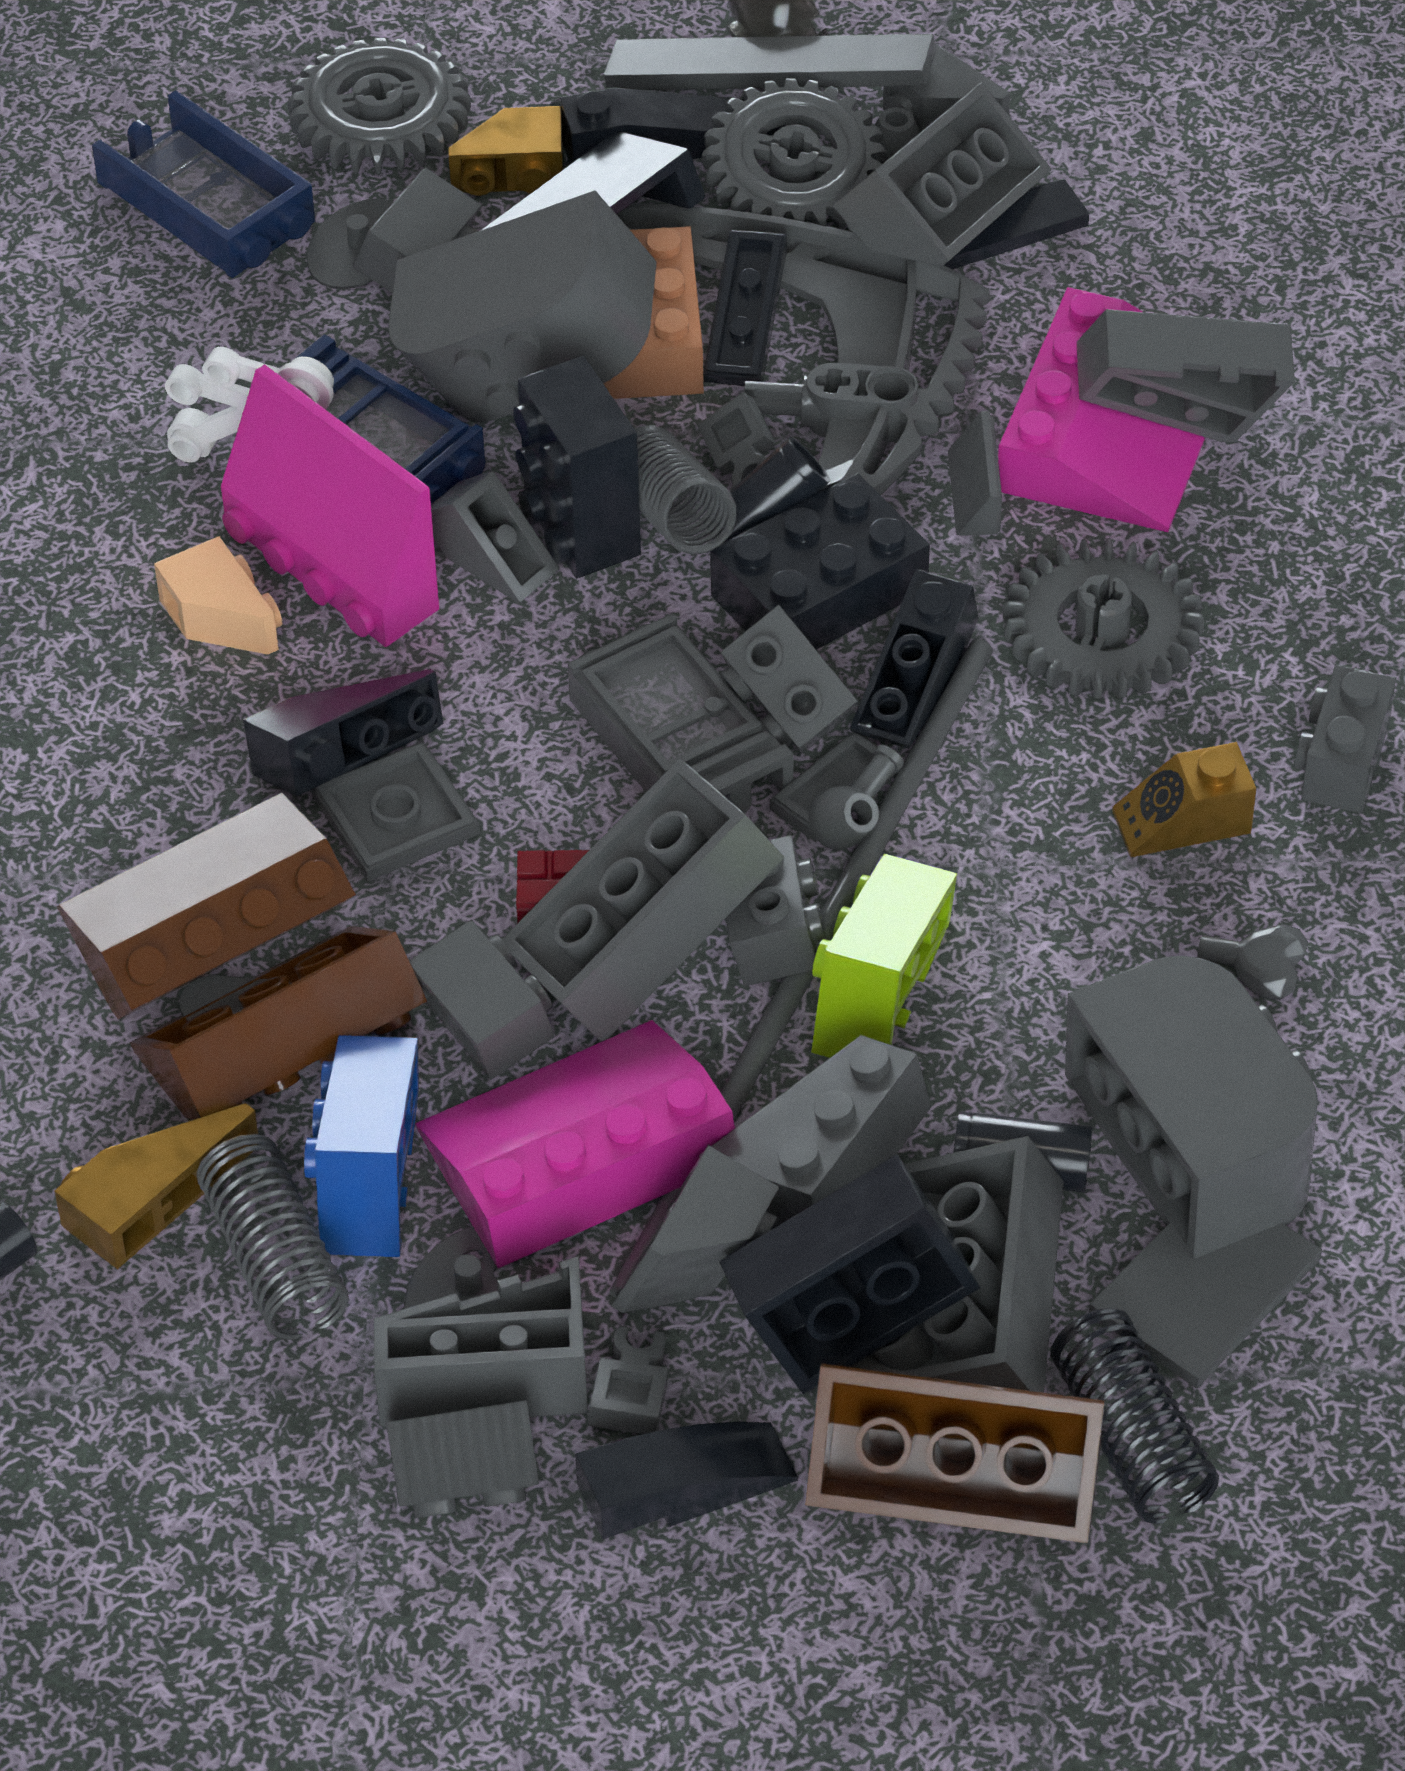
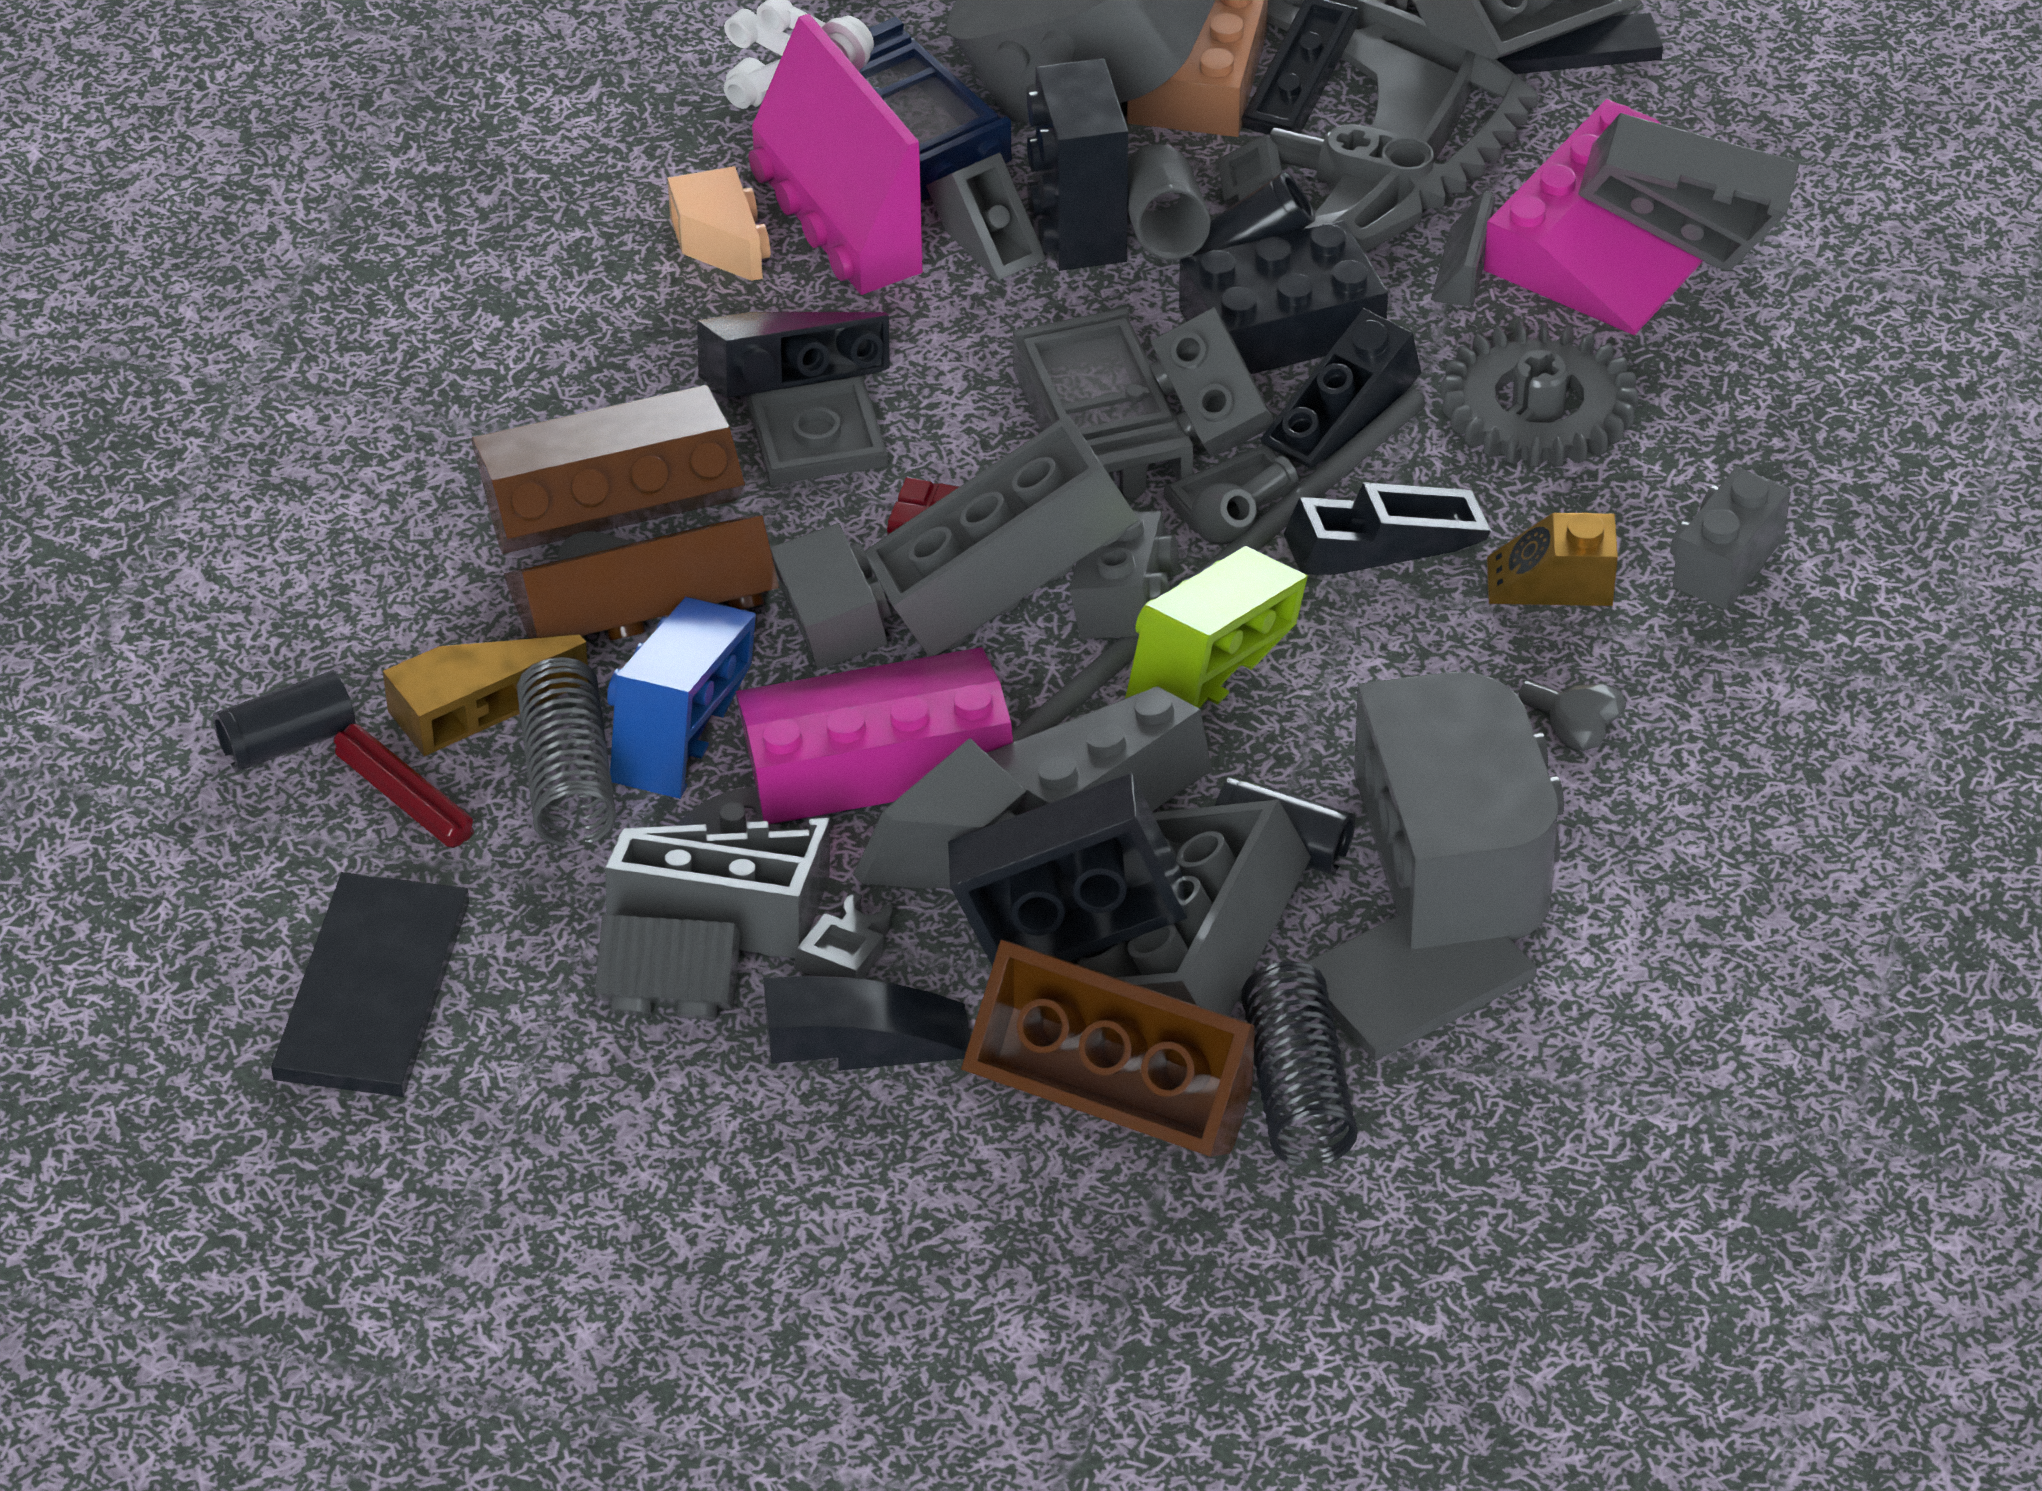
camera: 15 degrees right, 5 degrees down
(110, 1309) = (403, 786): none -> dark red axle
(155, 1546) = (371, 984): none -> black tile
(1003, 799) = (1382, 527): none -> black slope

